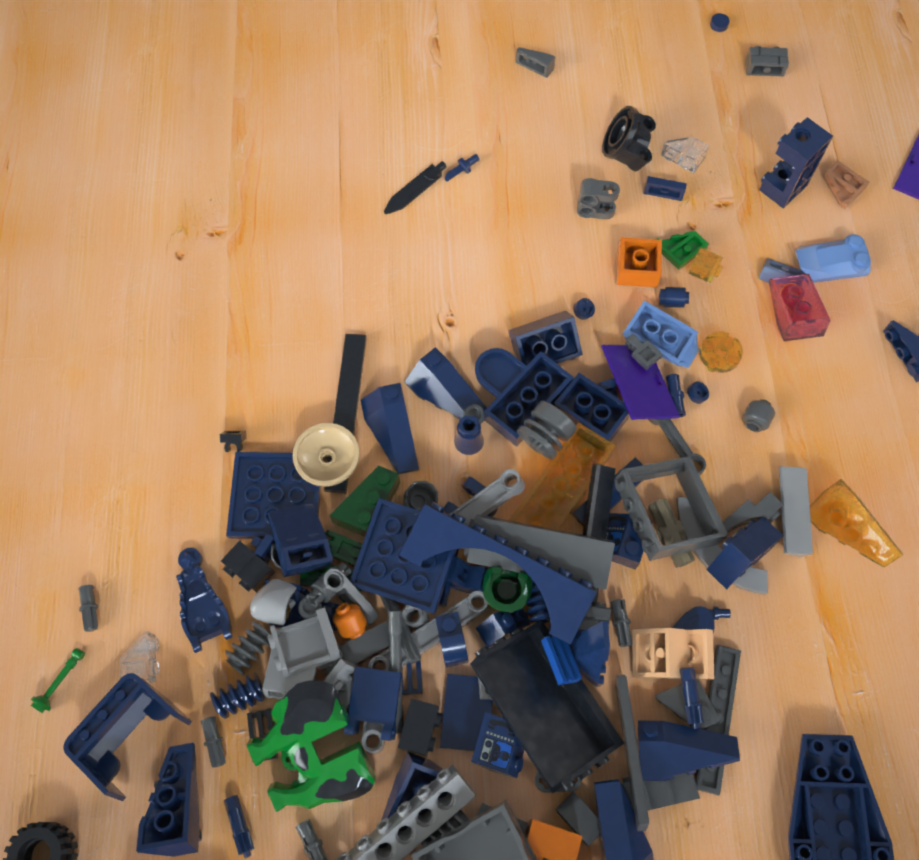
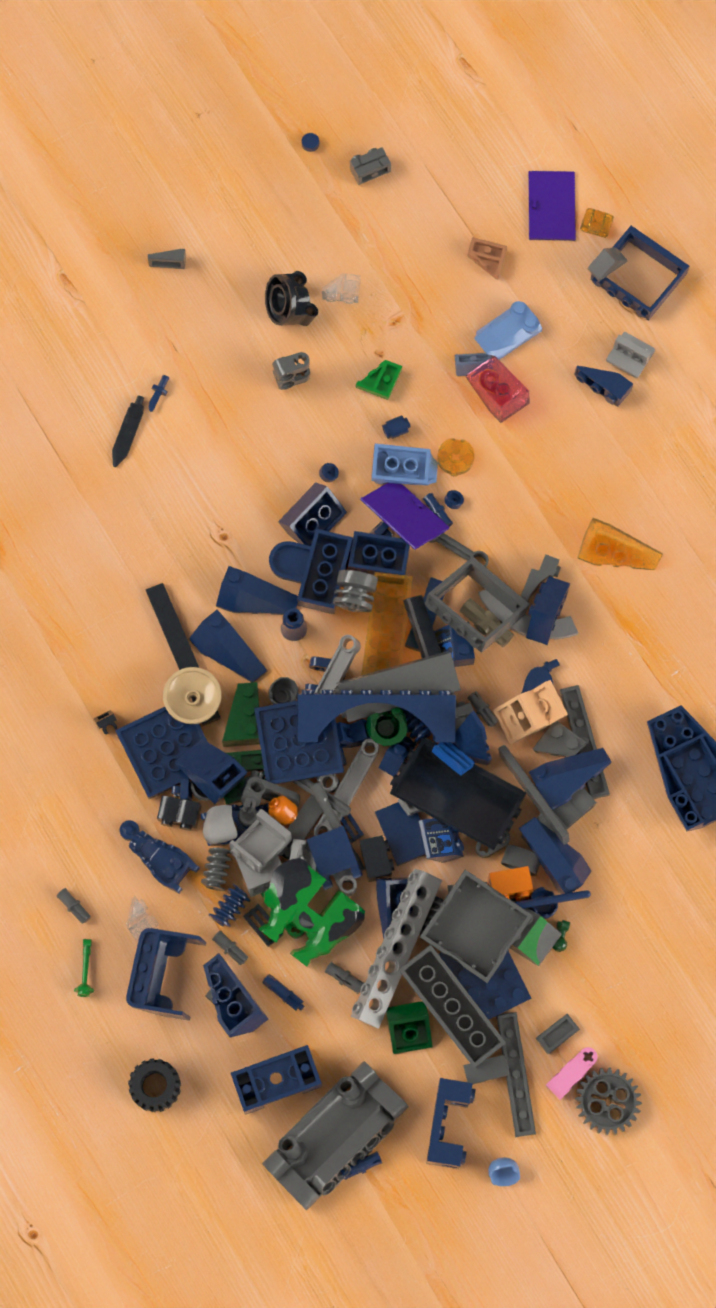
camera: 30 degrees left, 5 degrees up
(451, 639) = (366, 784): dark blue brick -> none
(475, 410) = (287, 603): dark grey tile -> none
(639, 262) = (354, 411): orange brick -> none
(644, 353) = (397, 489): dark grey plate -> none
(665, 188) = (342, 331): dark blue tile -> none
(691, 697) = (558, 736): dark blue piece -> none
(706, 265) = (409, 387): clear yellow brick -> none
(758, 415) = (509, 495): dark grey head -> none
(795, 511) = (570, 559): light grey slope -> none
(801, 155) = (440, 263): dark blue plate -> none

